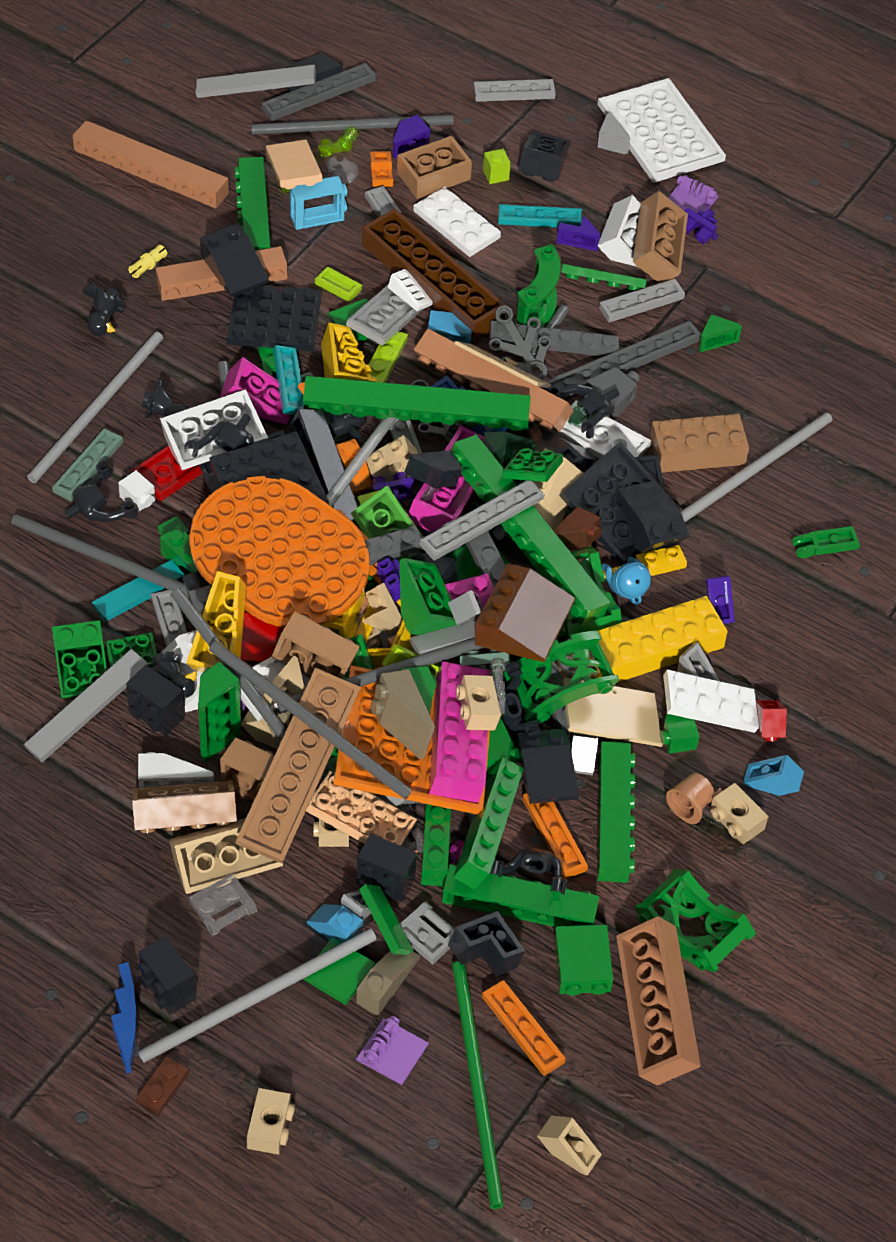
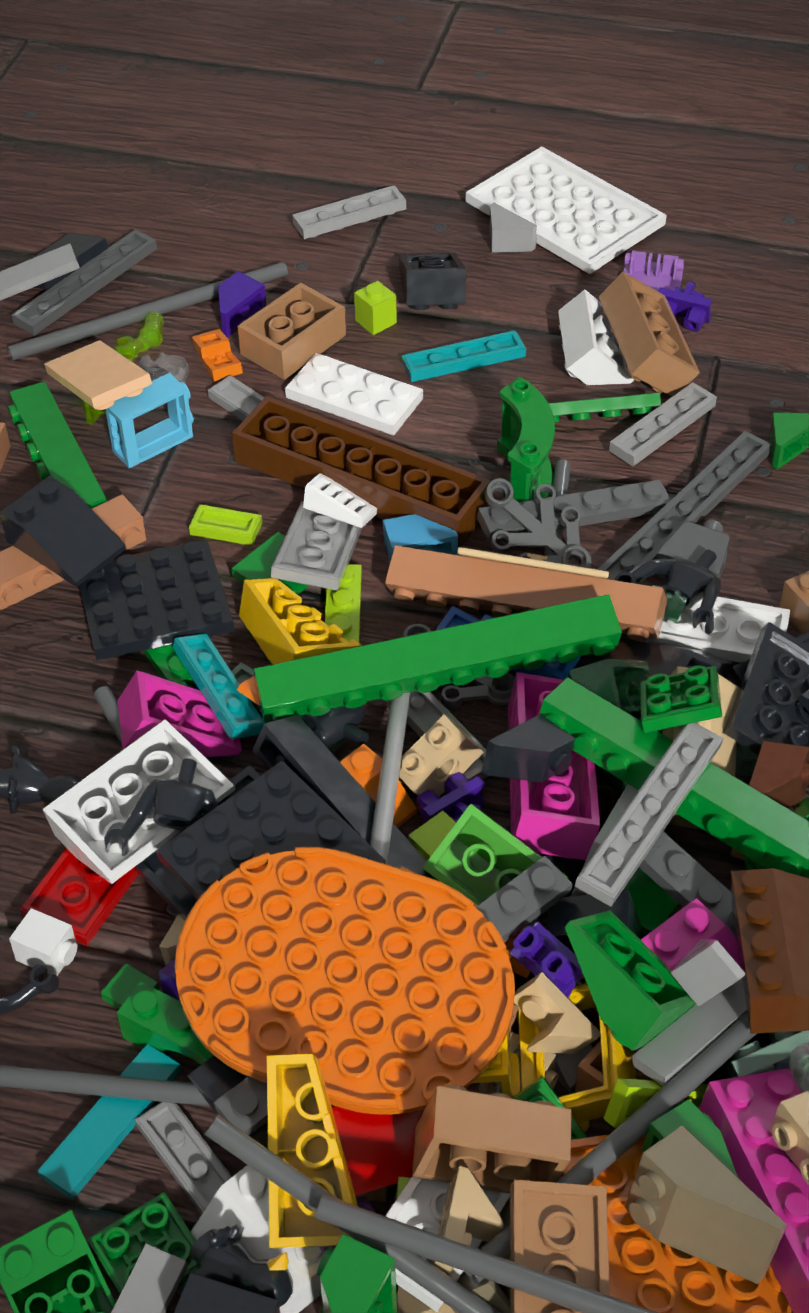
camera: 15 degrees left, 5 degrees down
(581, 236) = (539, 363): dark purple slope -> none

